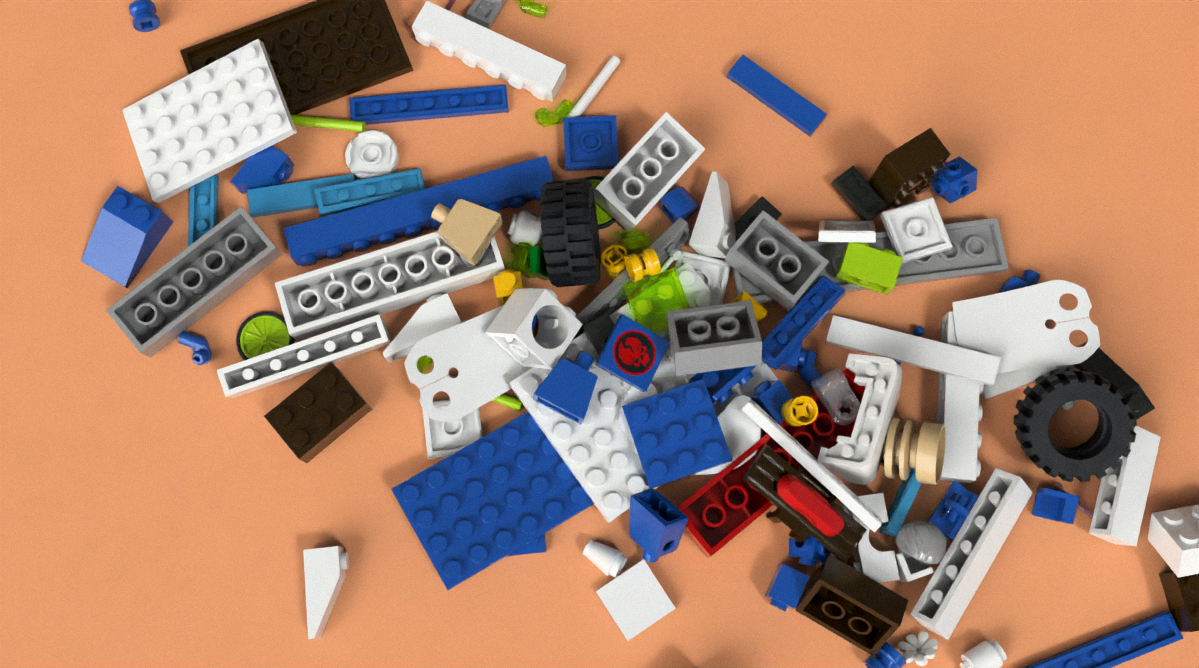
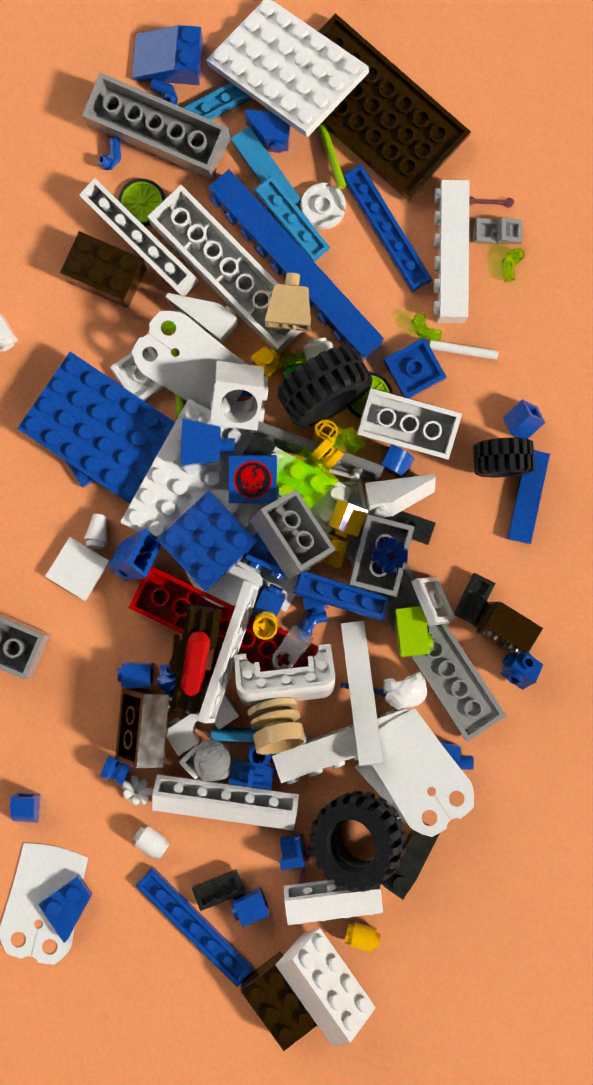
camera: 65 degrees right, 10 degrees up
(159, 257) = (167, 90): none -> blue arm
(696, 63) = (524, 419): none -> blue panel
(719, 278) = (347, 519): none -> yellow brick
(728, 95) = (503, 457): none -> black tyre
(785, 244) = (388, 565): none -> clear blue brick
(916, 230) = (463, 655): white tile -> none
(930, 304) = (405, 693): none -> white hair
(941, 493) = (257, 759): none -> blue cone
(1065, 608) = (218, 890): none -> pearl dark grey plate
(1099, 580) = (250, 907): none -> blue brick
(1177, 474) = (362, 937): none -> yellow brick

